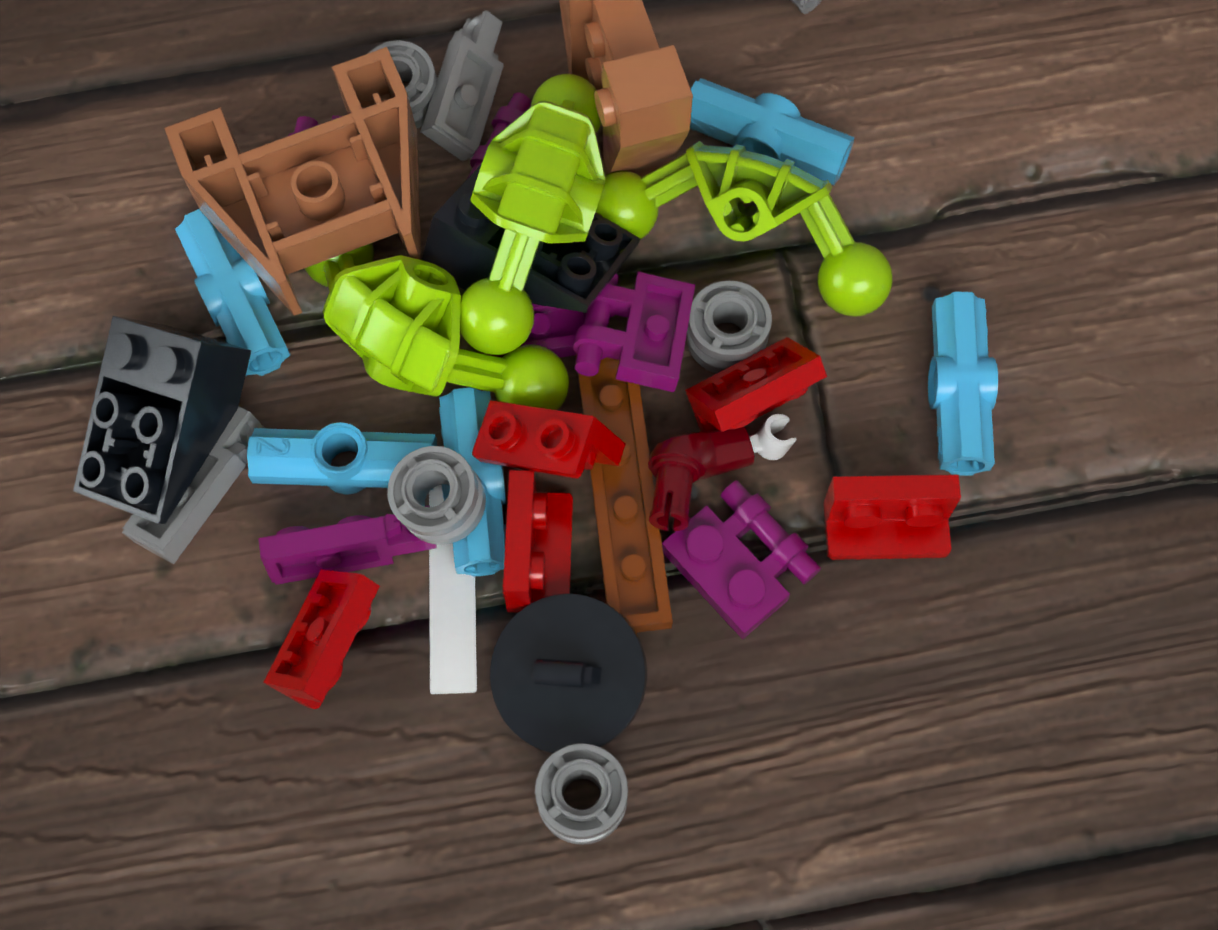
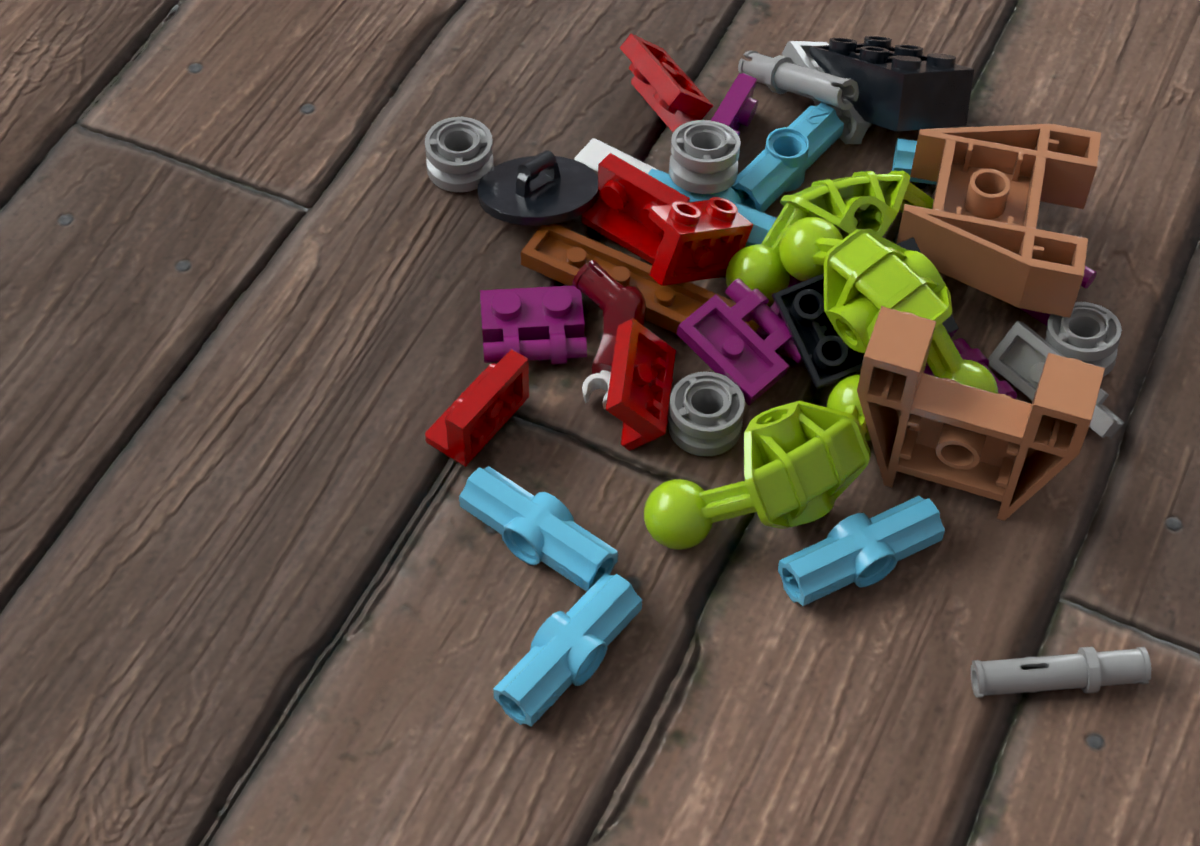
camera: 125 degrees right, 15 degrees down
(224, 504) = (785, 76): none -> light grey pin
(1051, 280) = (567, 649): none -> medium azure piece

